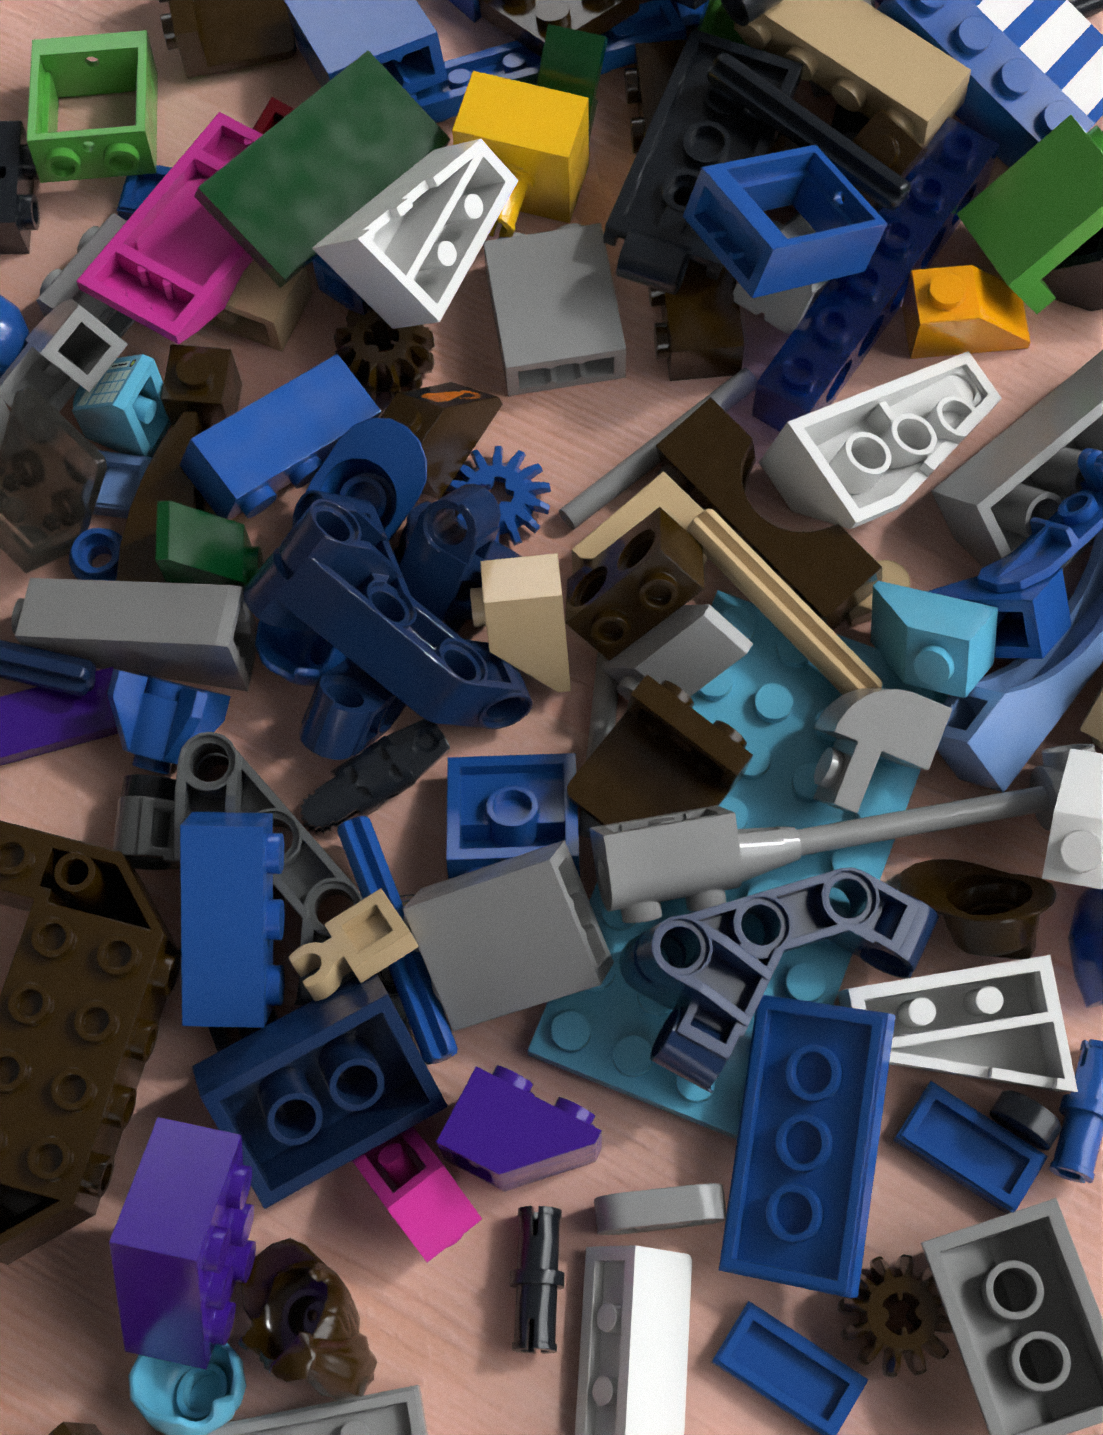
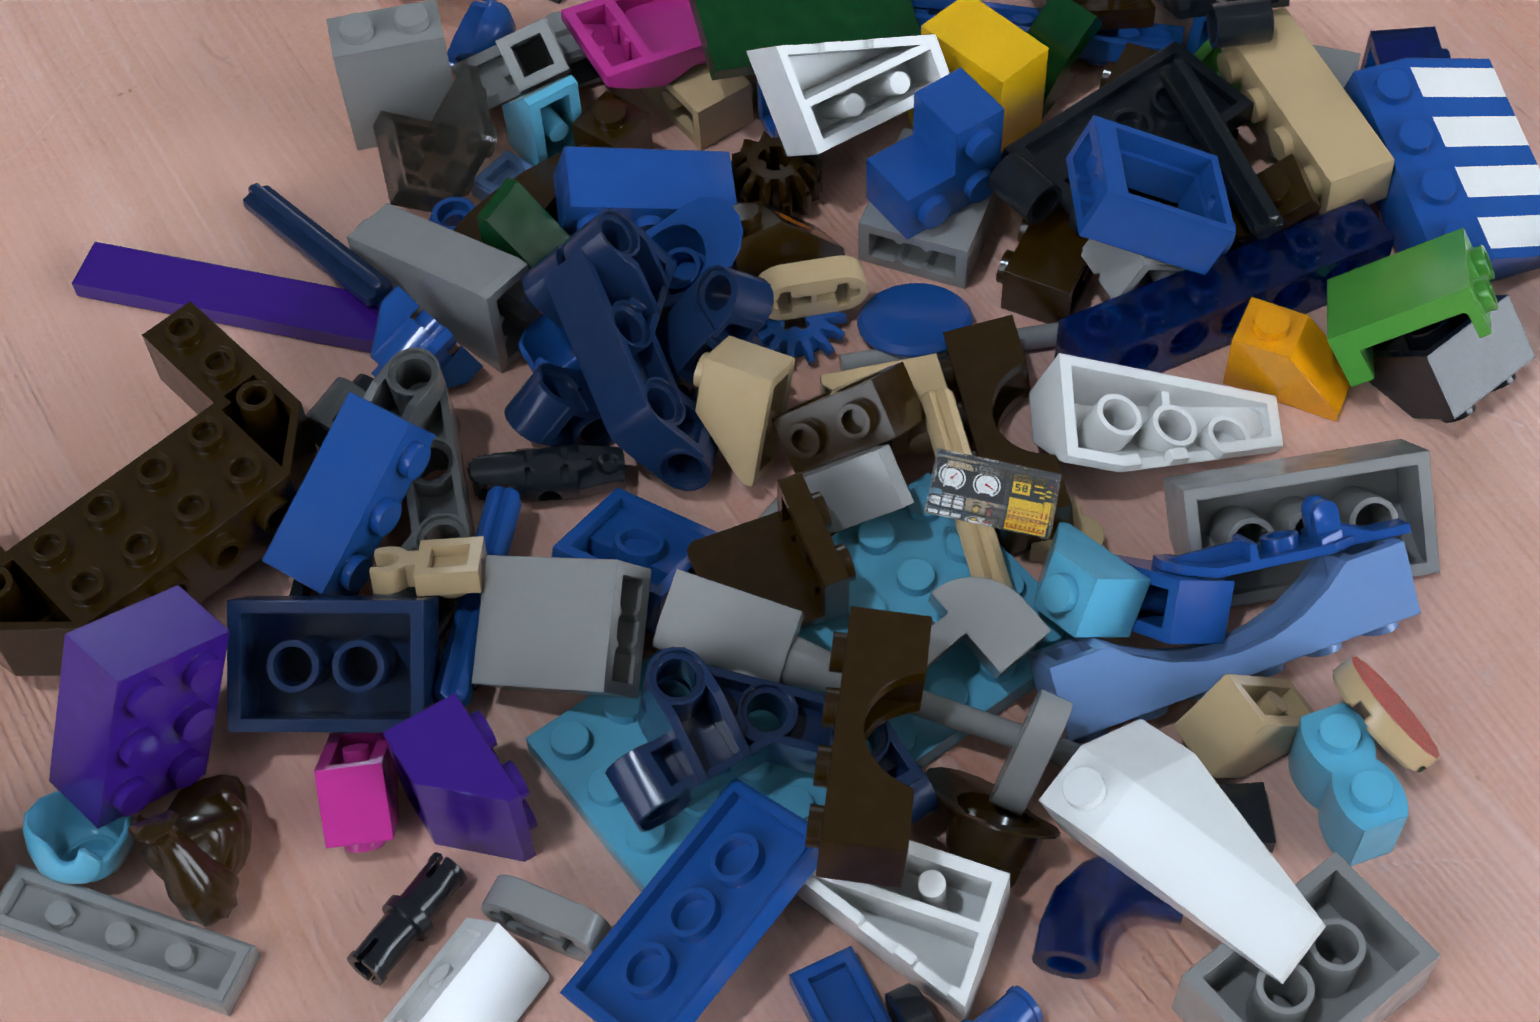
camera: 30 degrees right, 15 degrees down
(505, 453) = (816, 286): none -> tan beam
(560, 271) = (944, 159): none -> blue brick
(605, 437) = (912, 319): none -> blue piece
(813, 595) = (993, 493): none -> clear tile
(923, 987) = (867, 811): none -> dark brown arch
(992, 827) = (1030, 752): none -> light grey beam

